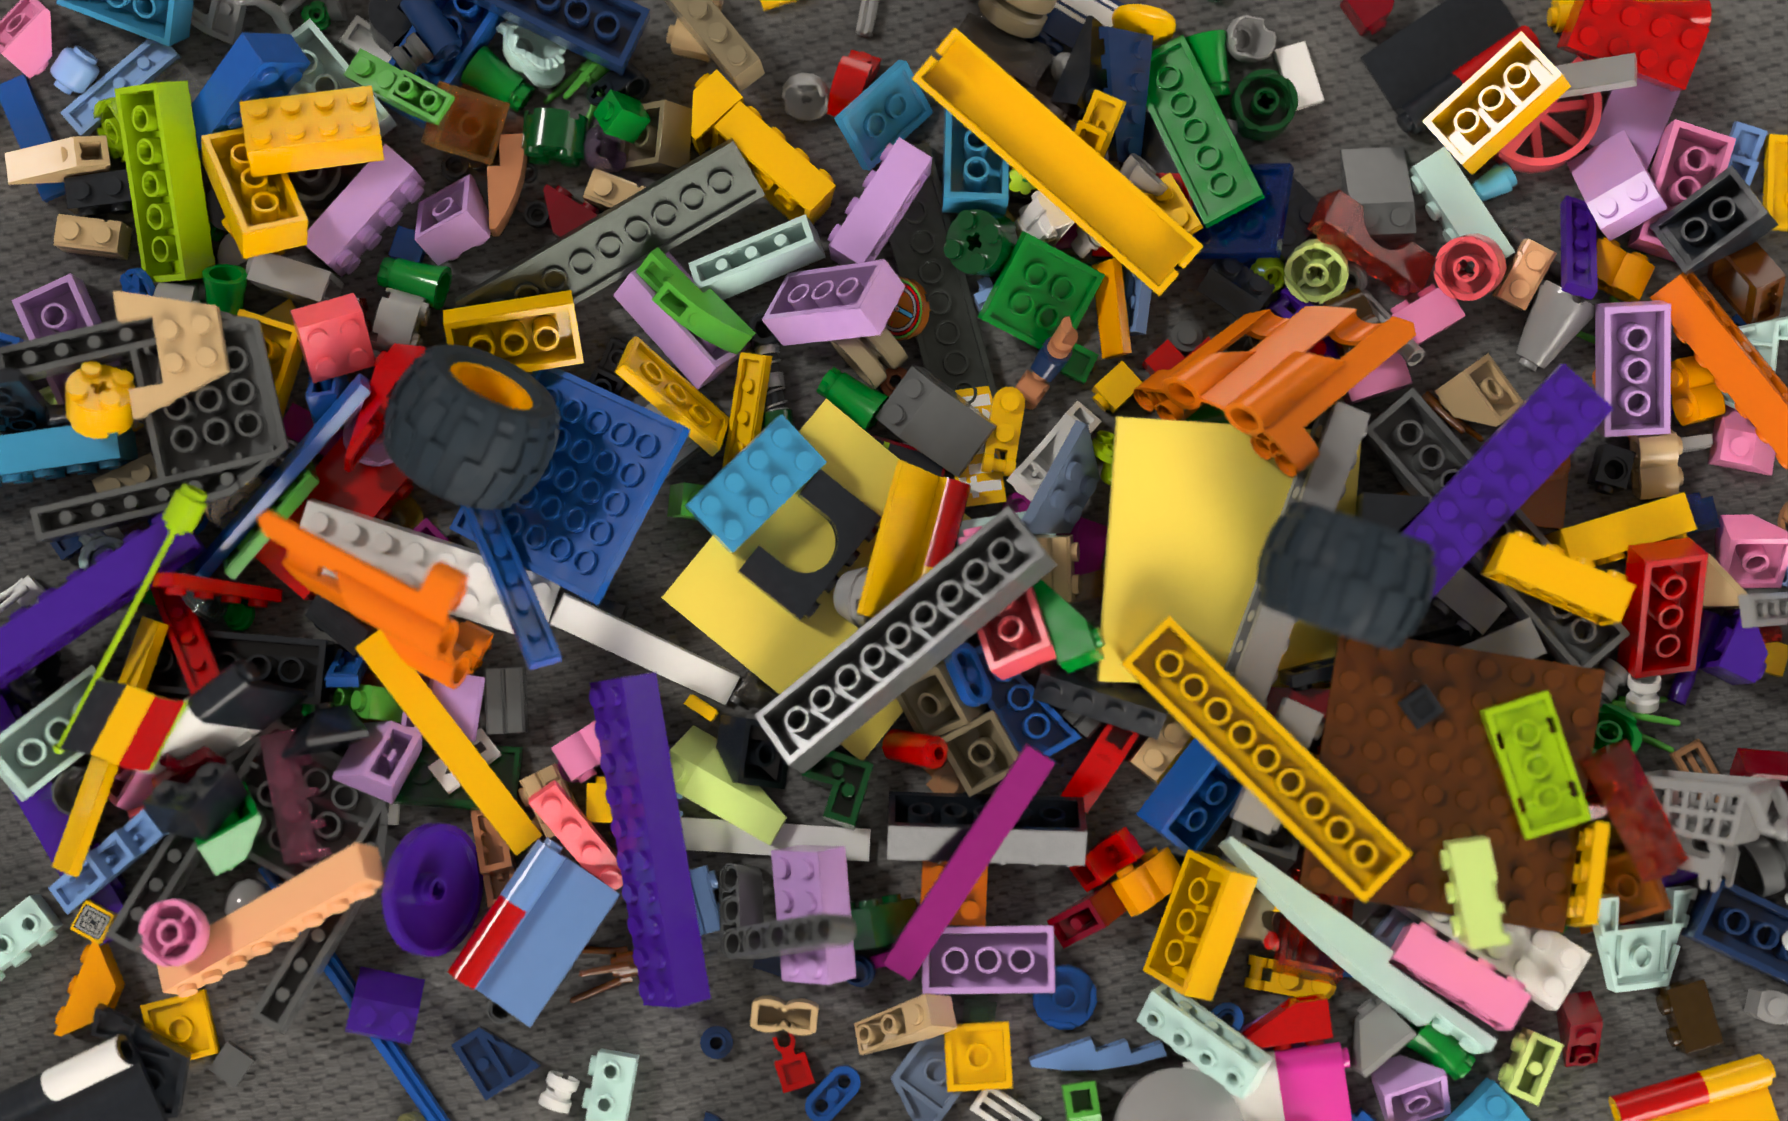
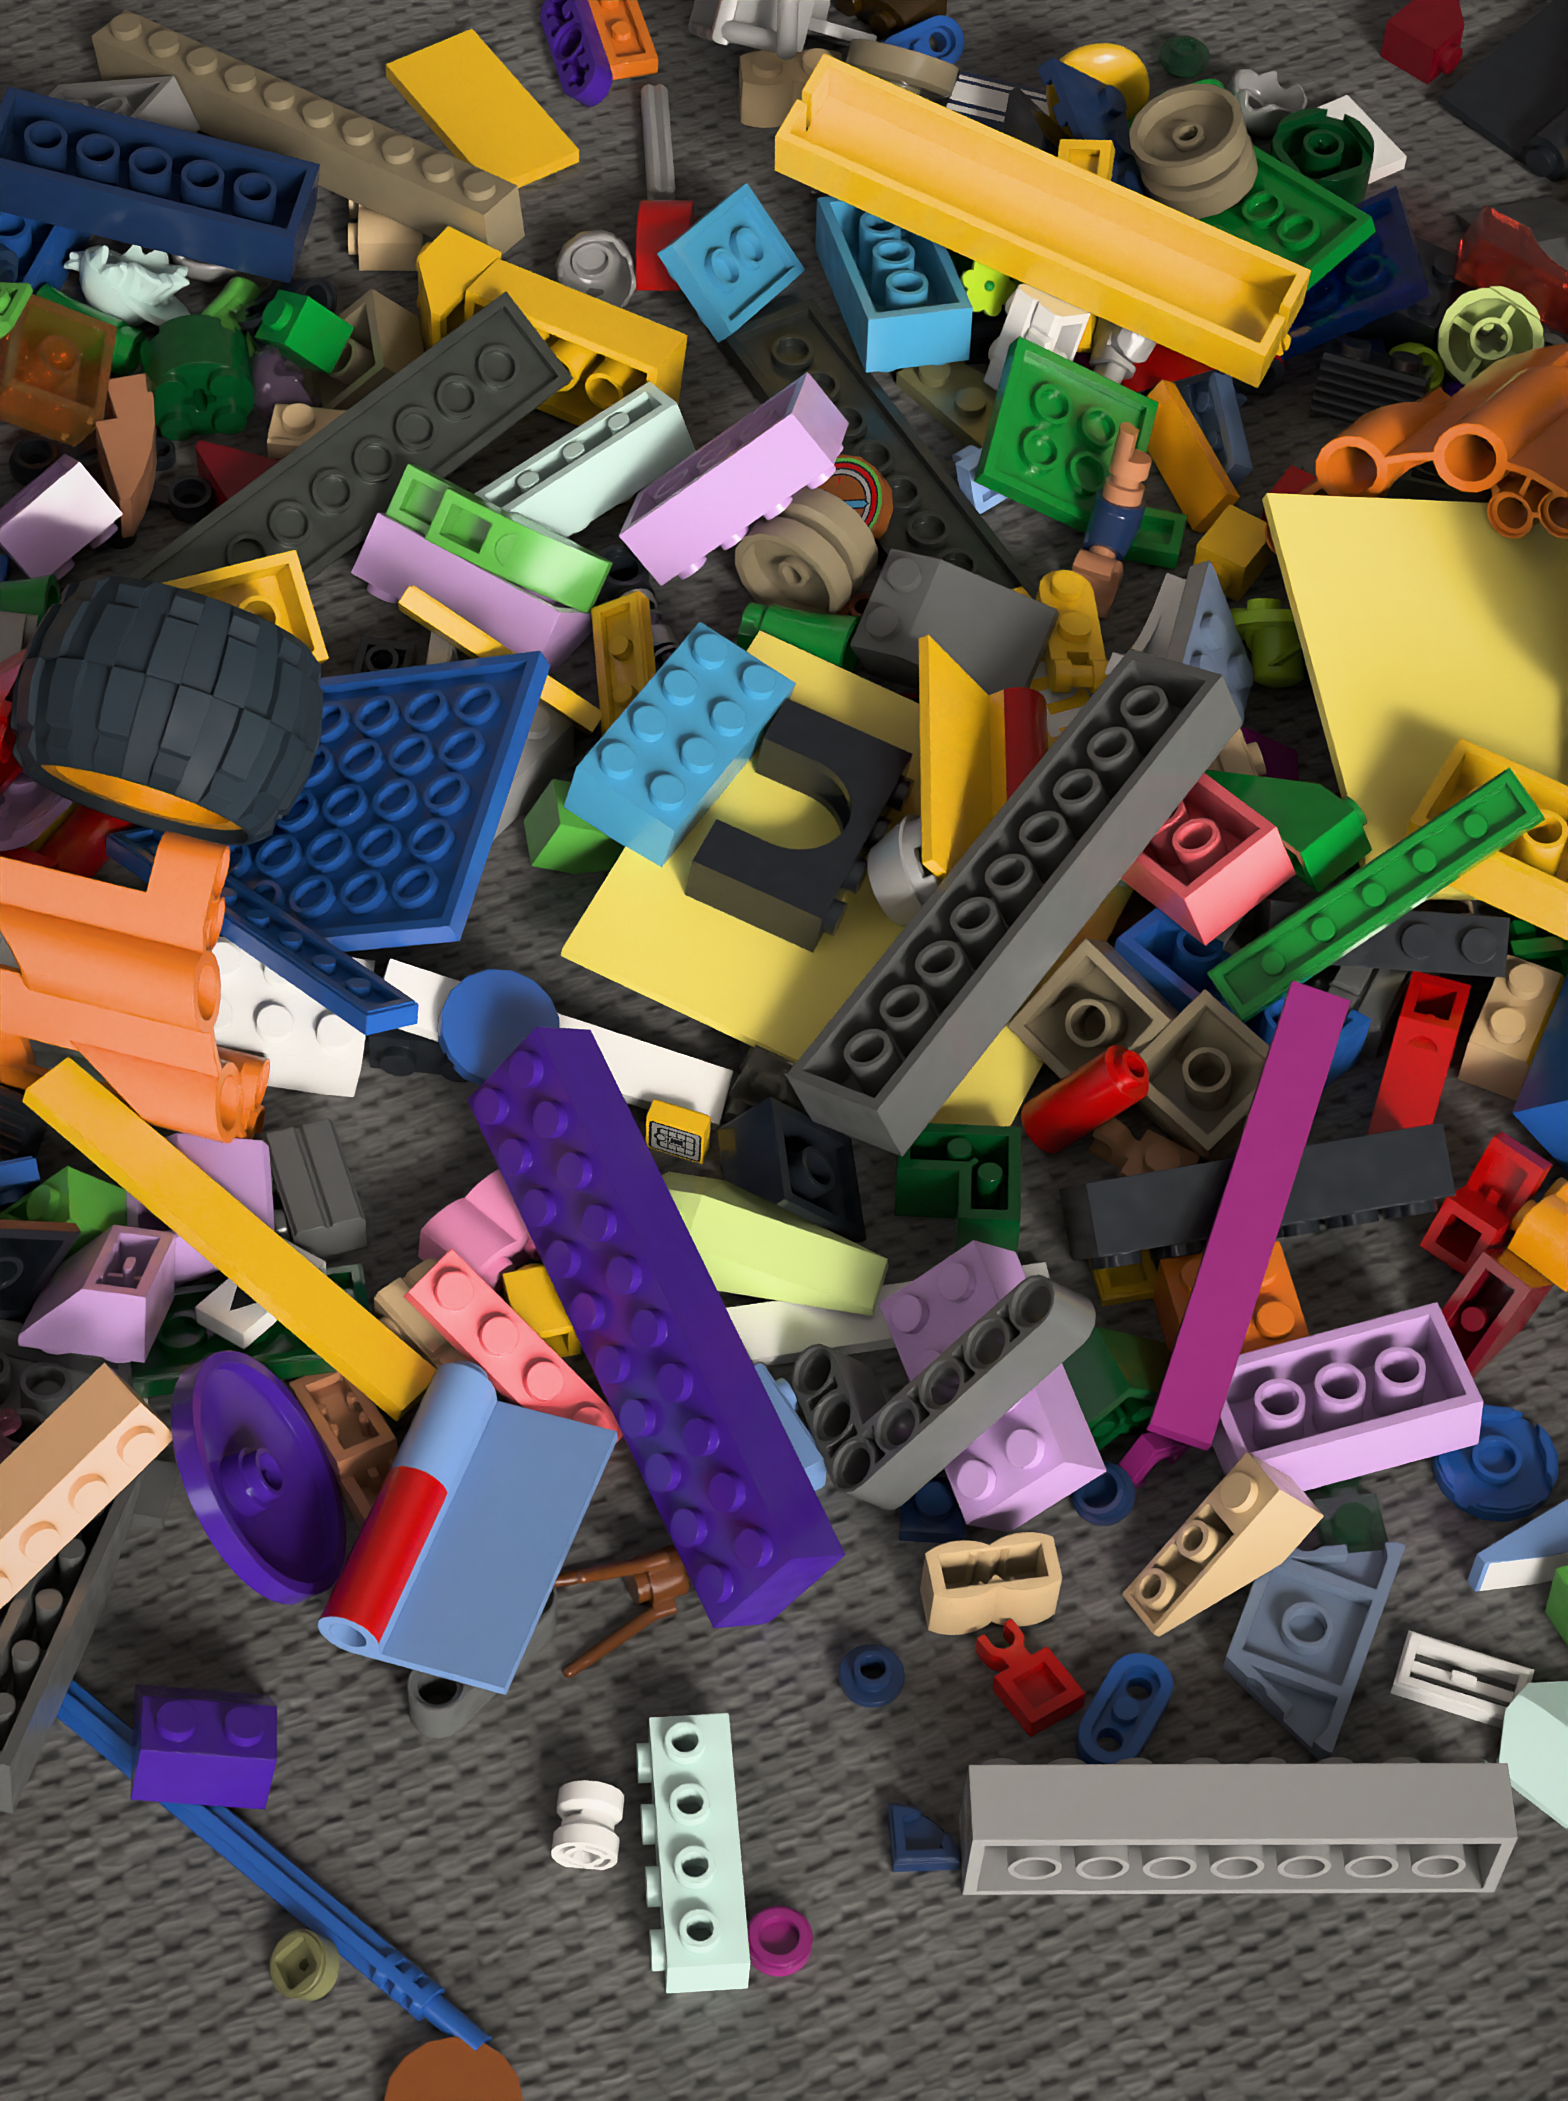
camera: 15 degrees left, 30 degrees down
(492, 1061) = (439, 1804): dark blue wing -> none
(614, 644) = (489, 1019): none -> blue tile
(881, 205) = (773, 337): lavender brick -> none
(968, 676) = (1129, 935): blue plate -> none
(978, 1056) = (1378, 1576): yellow tile -> none
(980, 242) = (944, 385): dark green brick -> none
(1094, 696) = (1376, 895): none -> green tile
(1175, 110) = (1194, 150): none -> dark tan wheel

